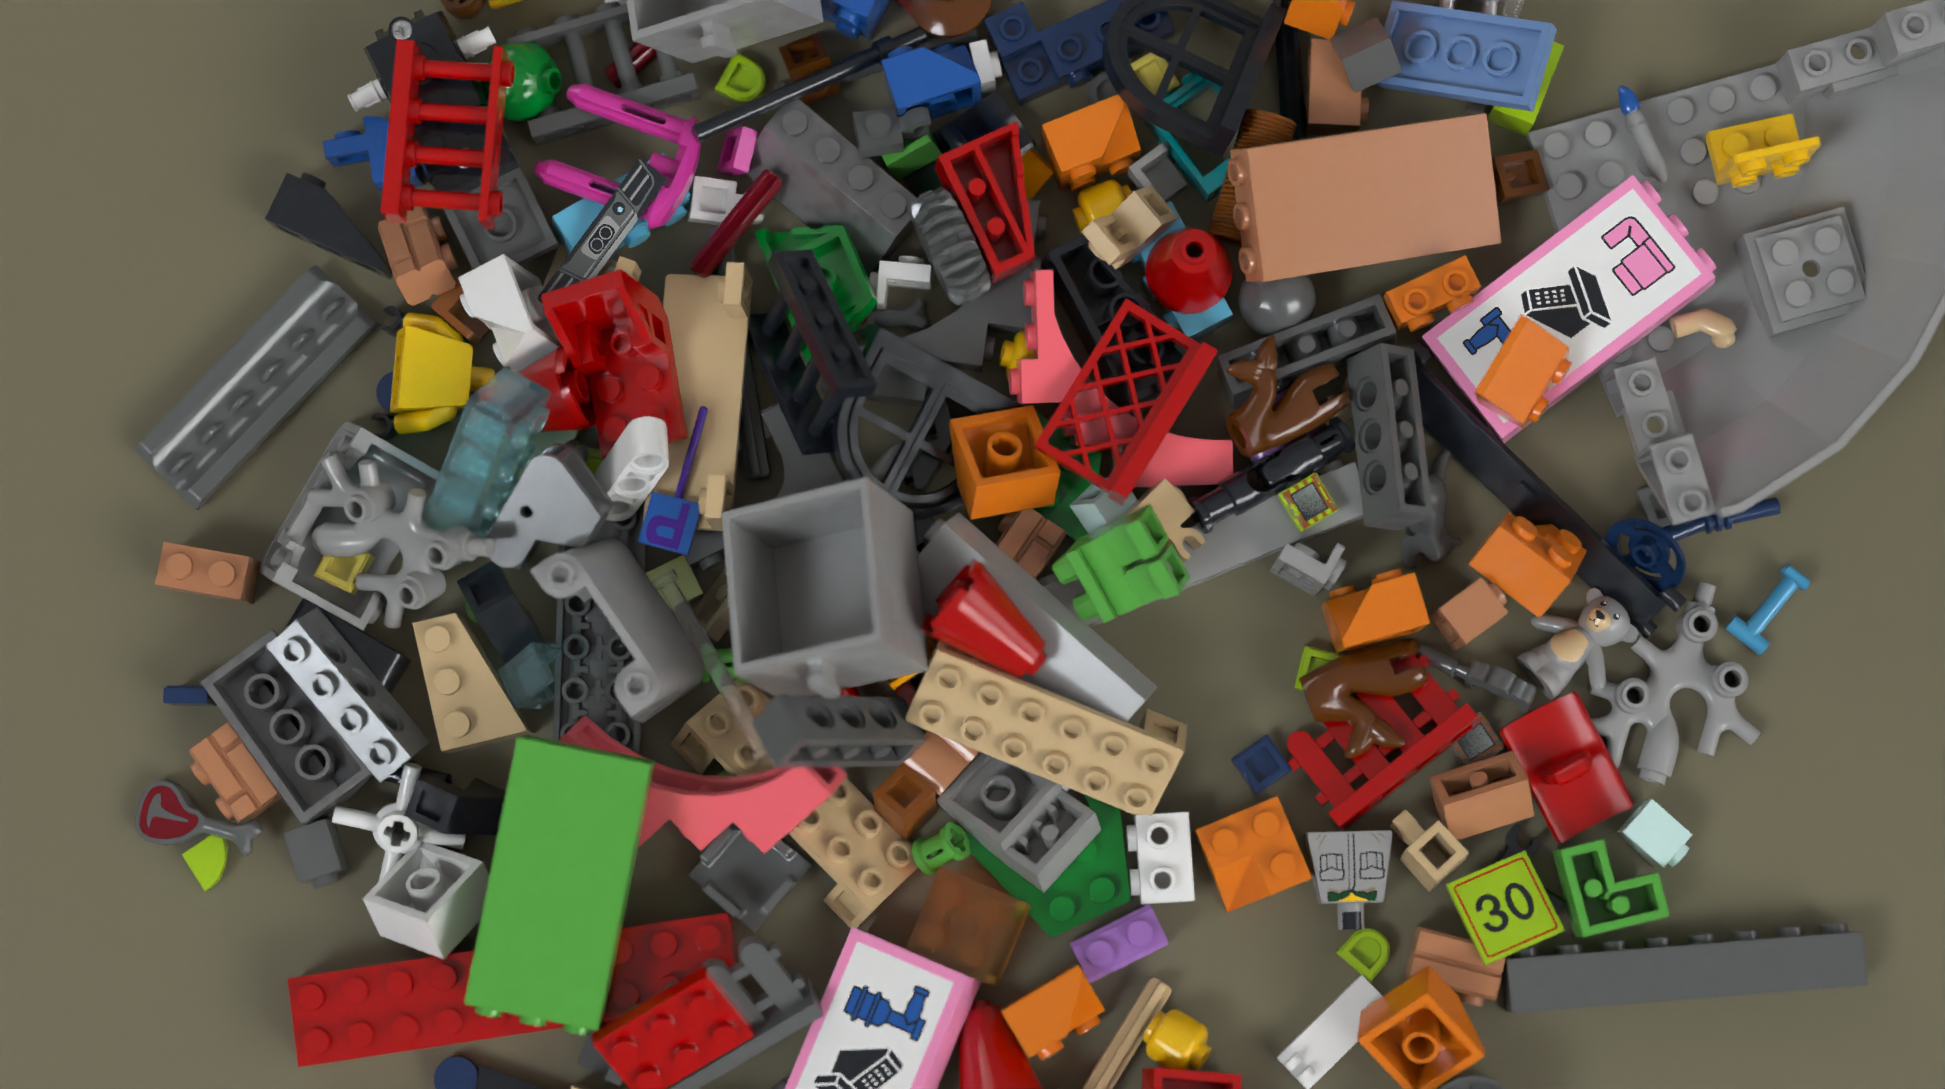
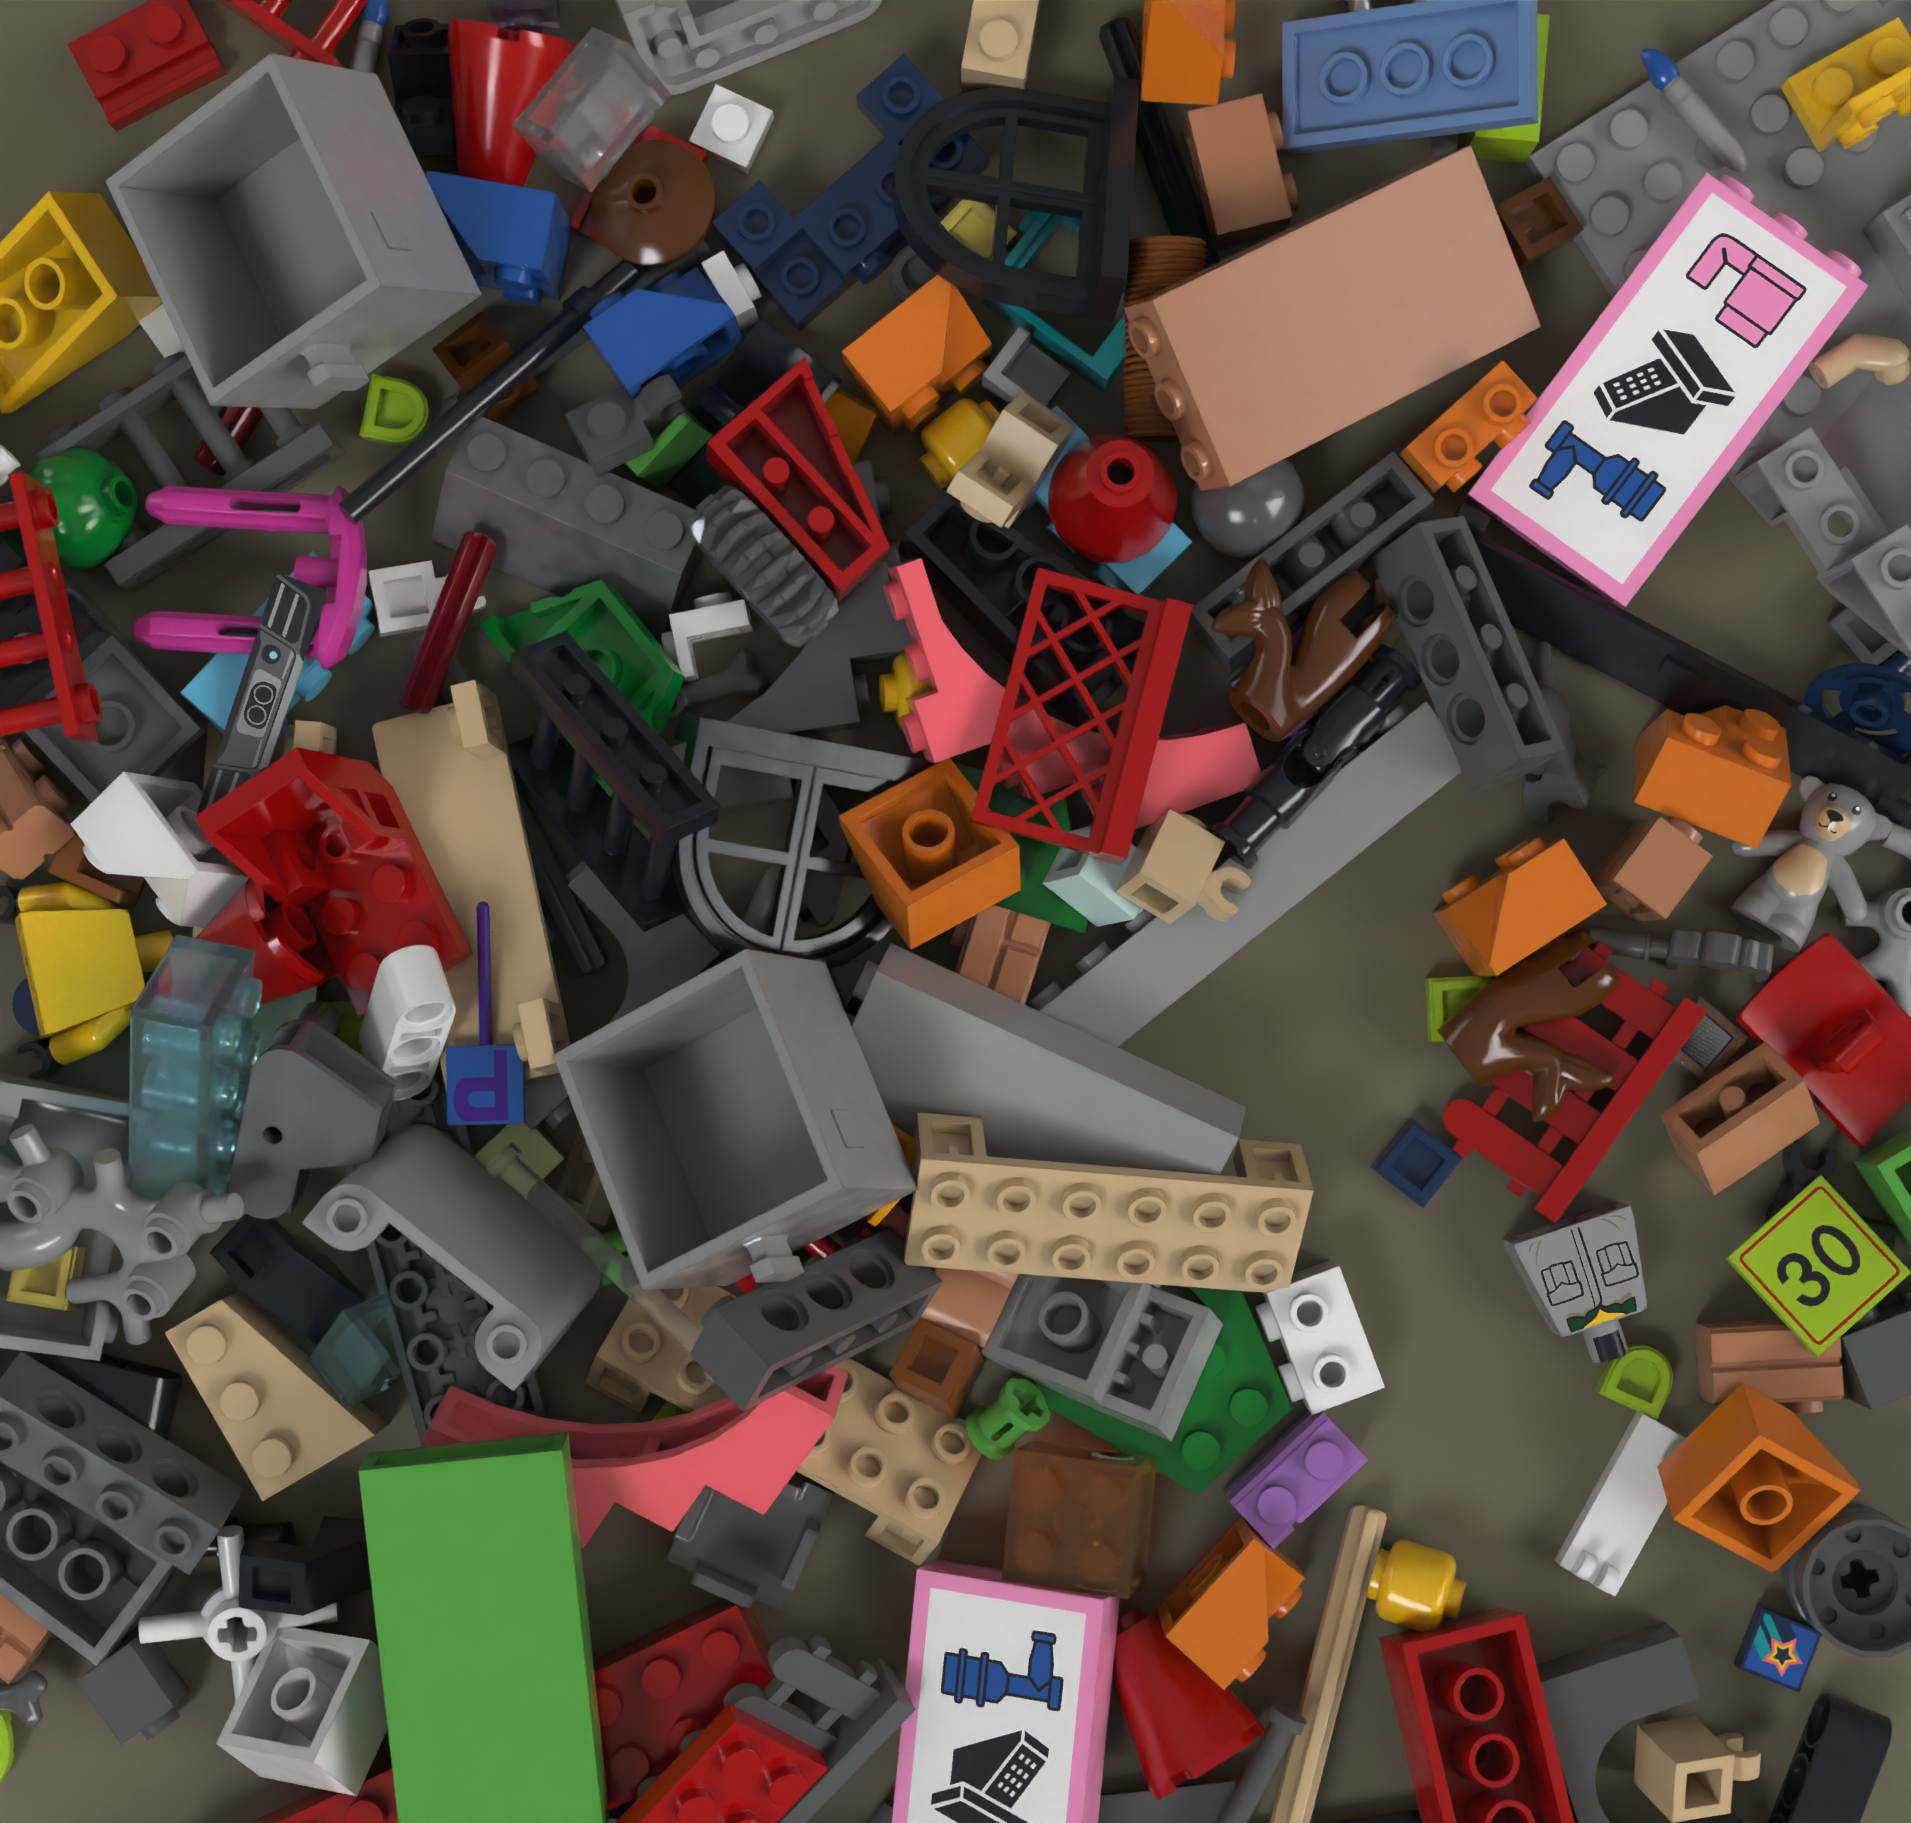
camera: 20 degrees left, 5 degrees up
(737, 151) = (418, 516): dark pink tile -> none
(985, 623) = (977, 1098): red cone -> none
(1122, 566) = (1148, 955): bright green hips -> none
(1252, 854) = (1443, 1293): orange slope -> none
(1302, 569) = (1407, 873): light grey bracket -> none
(1307, 502) = (1379, 780): tile -> none
(1366, 54) = (1273, 110): dark grey panel -> none
(1430, 853) = (1692, 1220): tan brick -> none
(1523, 373) = (1637, 506): orange slope -> none

